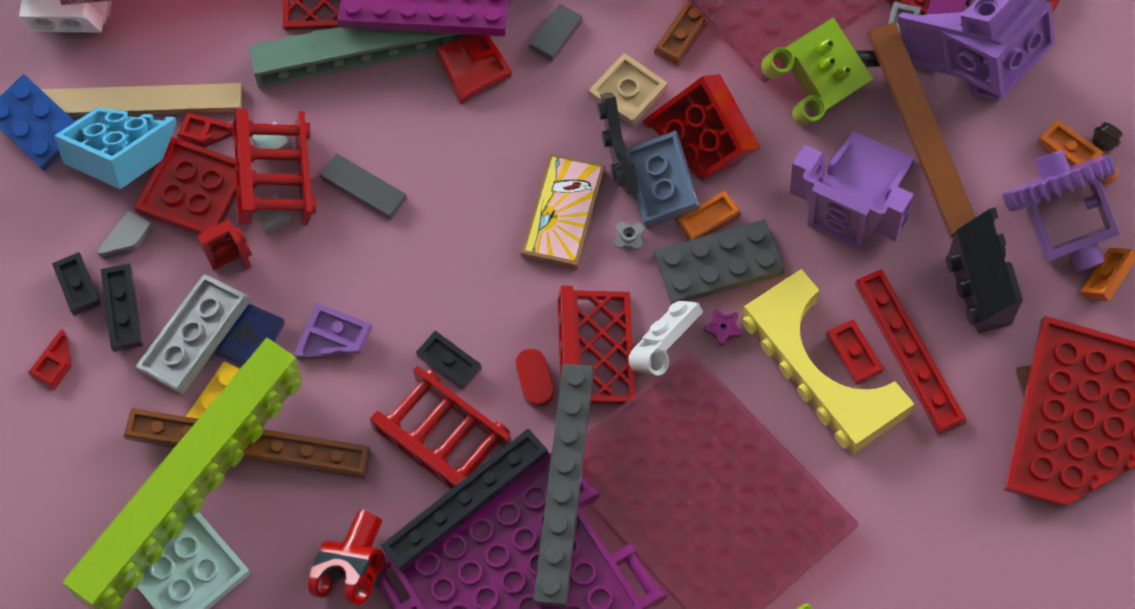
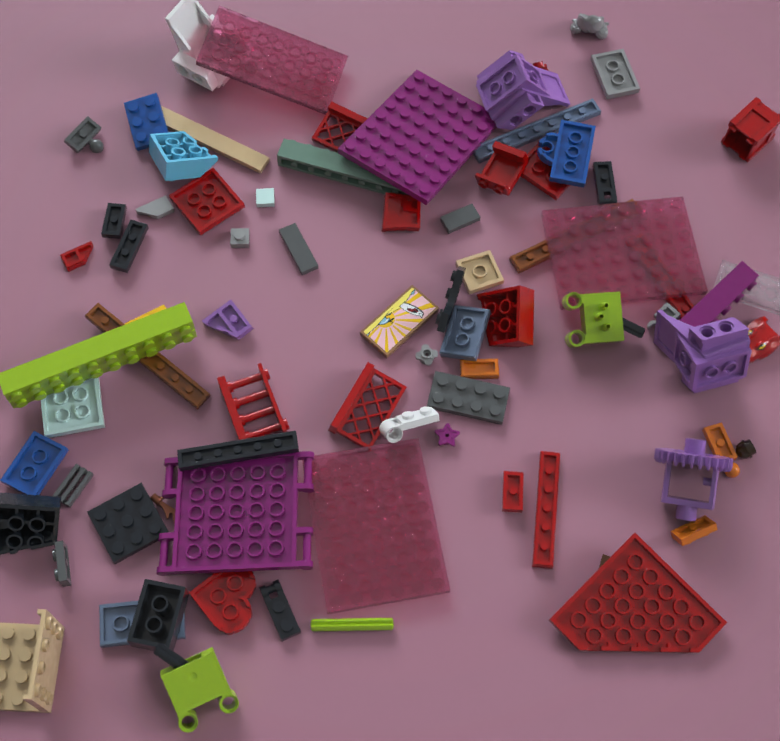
camera: 25 degrees right, 0 degrees up
(193, 334) = (156, 280): light grey tile -> none
(203, 130) = (233, 173): red tile -> none
(223, 244) = (201, 240): red bracket -> none
(248, 179) = (237, 211): red fence -> none
(248, 334) = (184, 290): clear blue tile -> none
(350, 561) = (157, 450): red connector -> none
(448, 360) = (282, 370): black plate -> none
(534, 377) = (323, 405): red tile -> none
(564, 486) = (295, 473): dark grey plate -> none
(852, 413) = (488, 526): light yellow arch -> none
(857, 192) = (574, 400): medium lavender piece -> none
(921, 127) = (635, 385): dark orange tile -> none
(983, 275) = (615, 488): black wedge -> none

